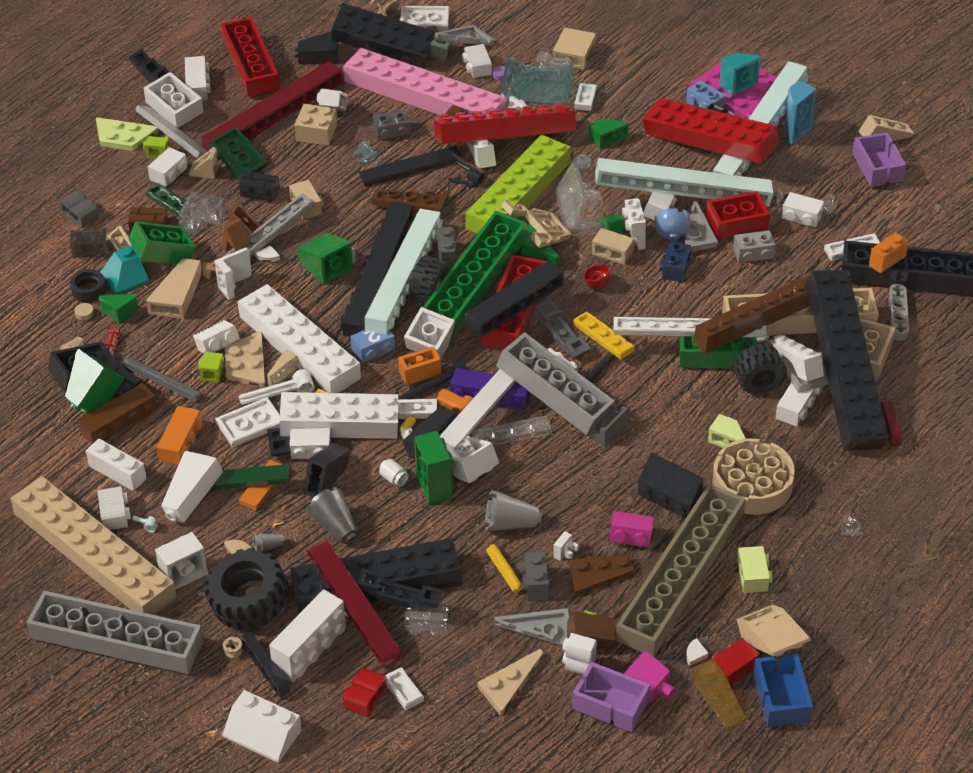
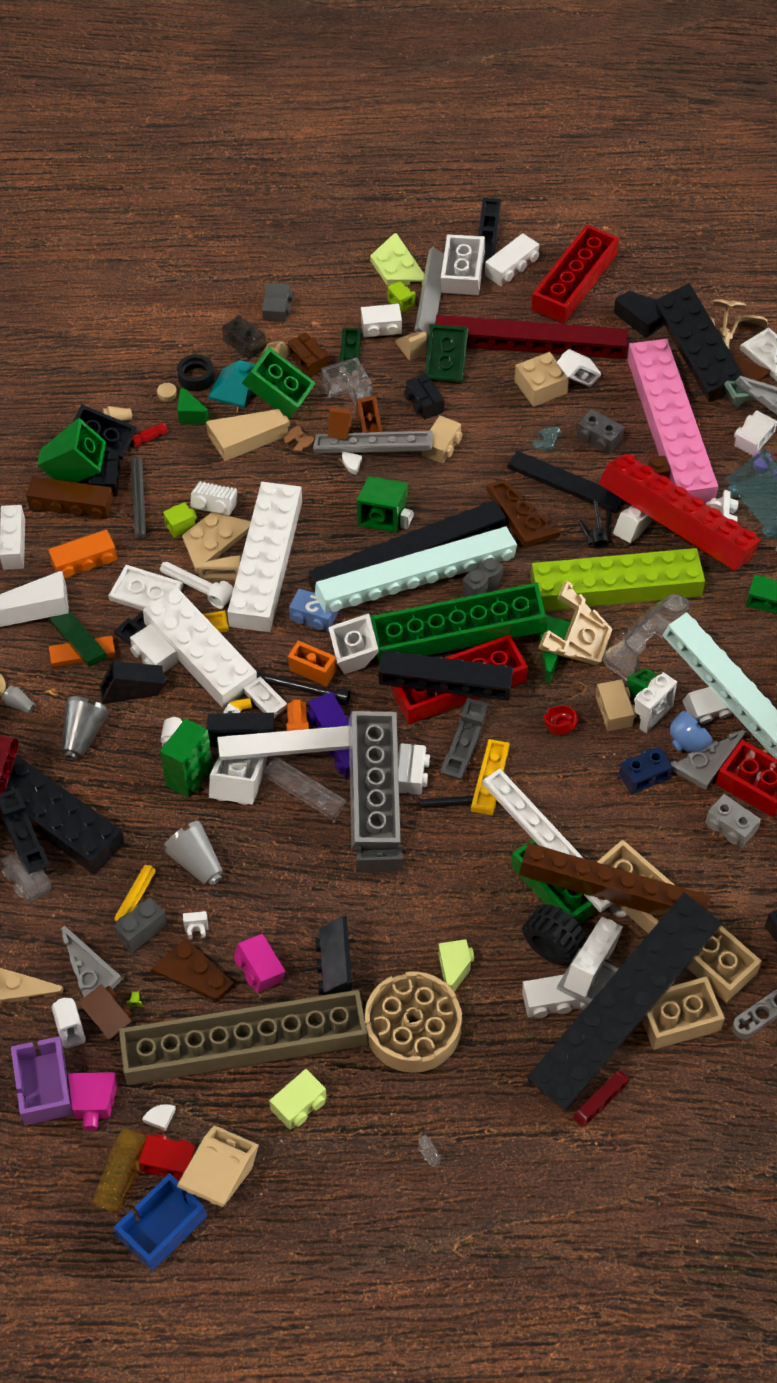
camera: 50 degrees right, 10 degrees up
(231, 270) = (296, 449): white bracket -> none
(427, 277) = (416, 590): black tyre -> none

